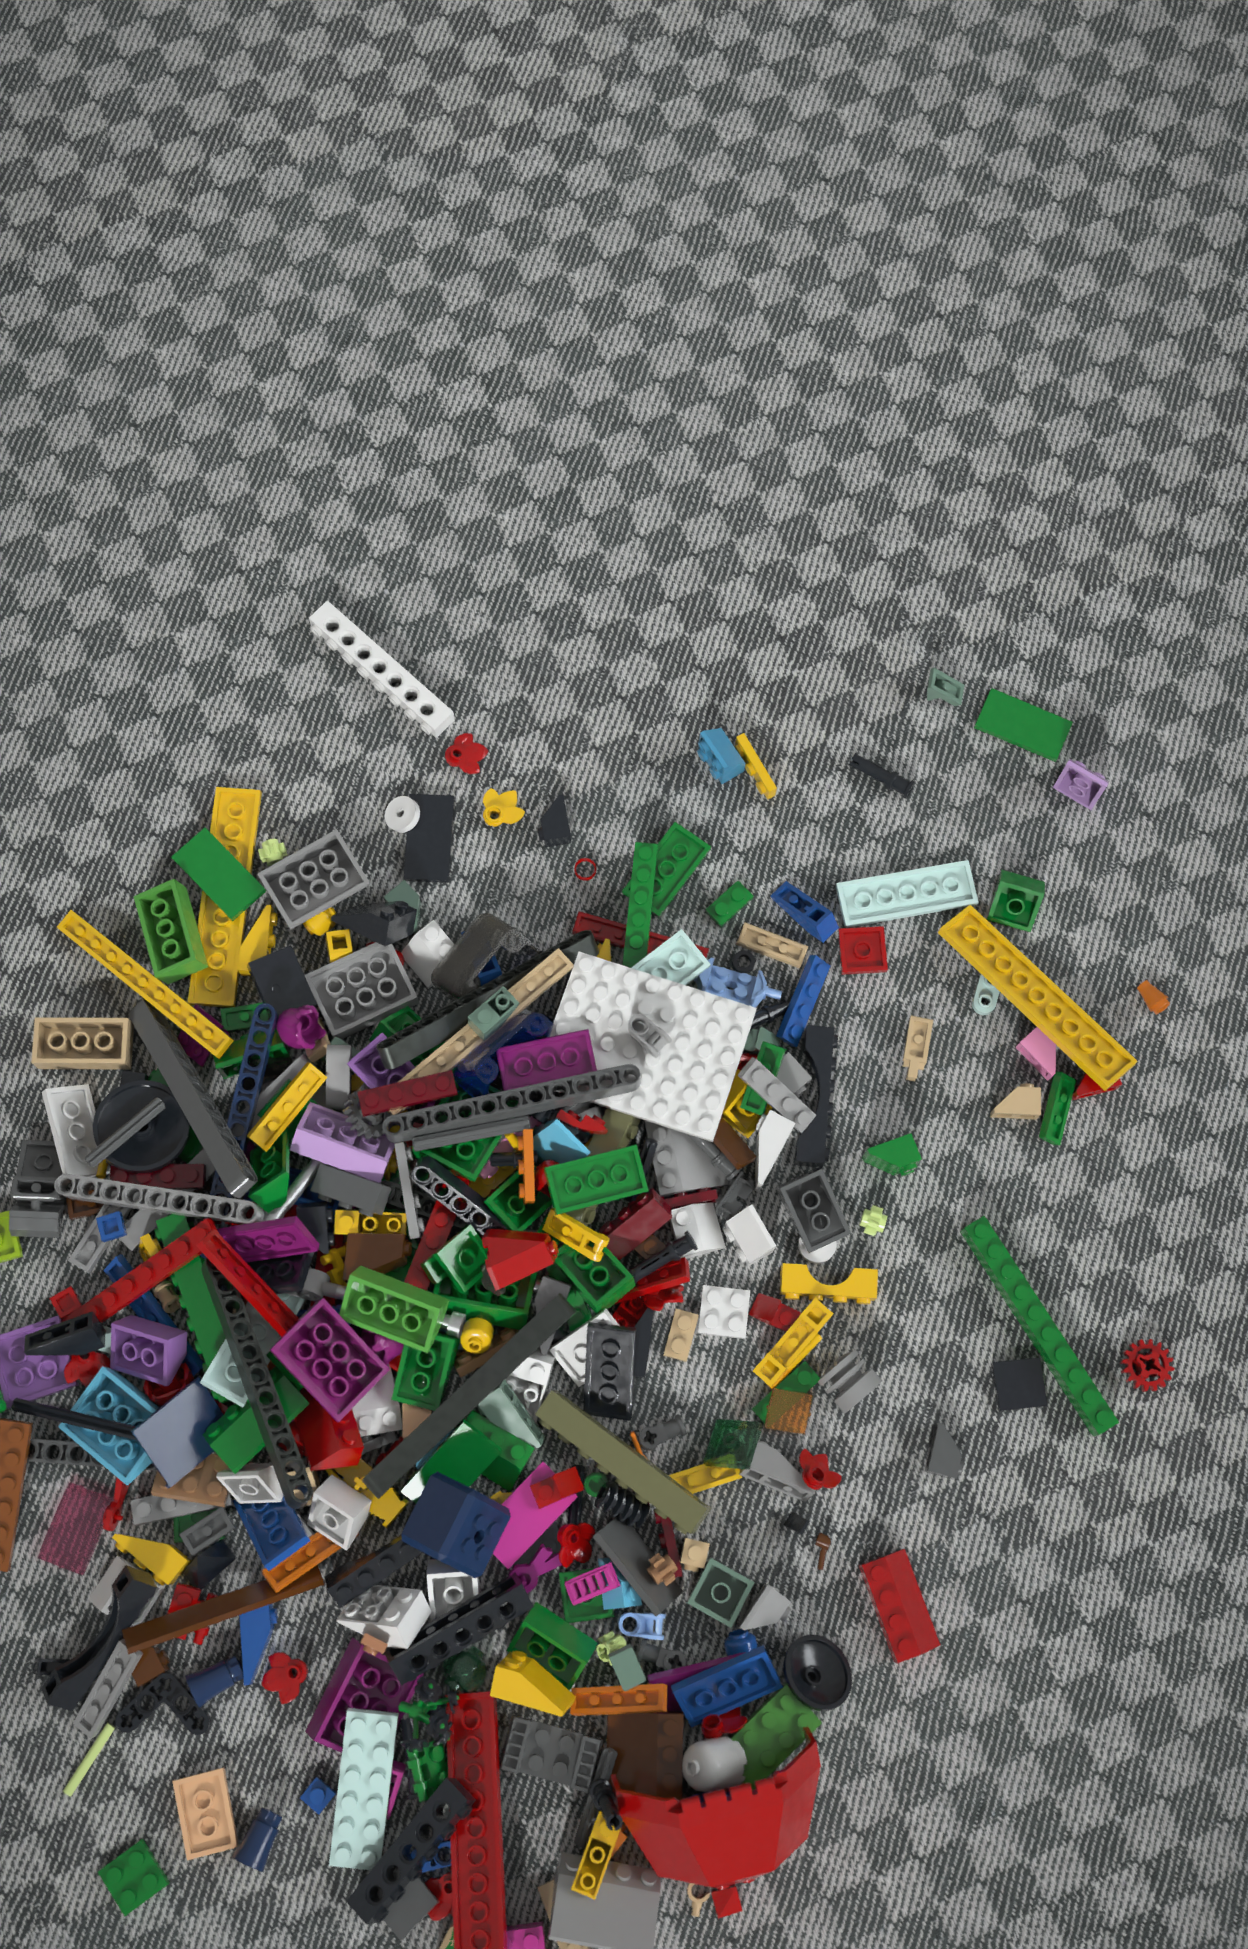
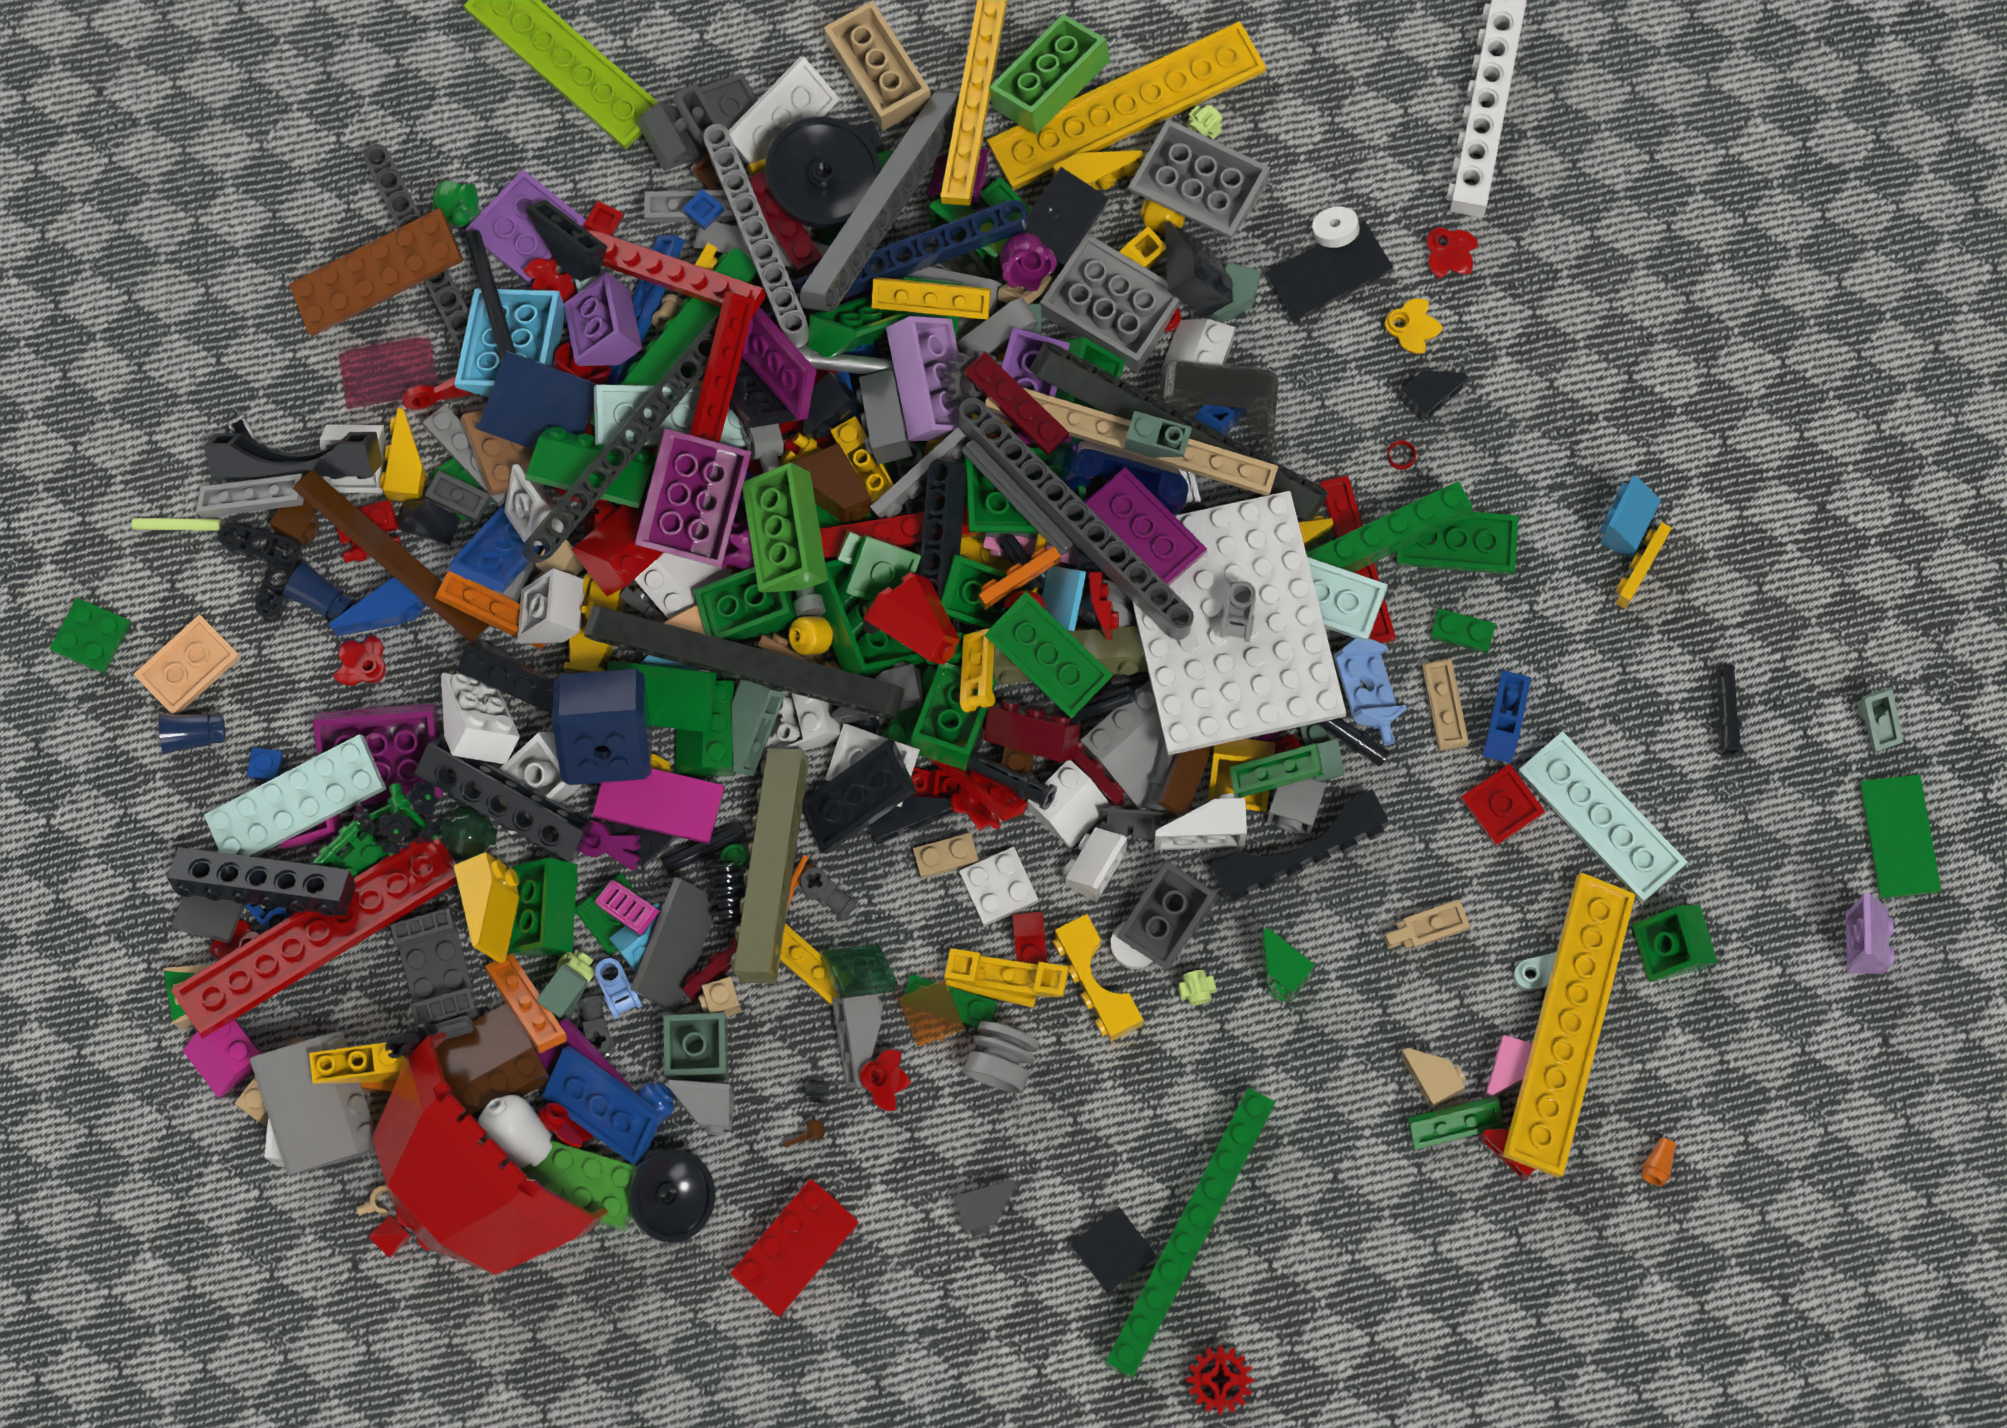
camera: 65 degrees right, 0 degrees up
(125, 1132) = (804, 158): dark grey axle -> none
(218, 874) = (1144, 82): green tile -> none
(372, 1645) = (436, 718): nougat plate -> none
(557, 1487) = (704, 814): red slope -> none
(575, 1543) = (659, 874): red plate -> none
(662, 1569) = (683, 969): medium nougat gear -> none
(747, 954) = (1405, 674): black piece -> none
(776, 1094) = (1265, 795): light grey plate -> none
(803, 1000) = (1401, 772): blue plate -> none

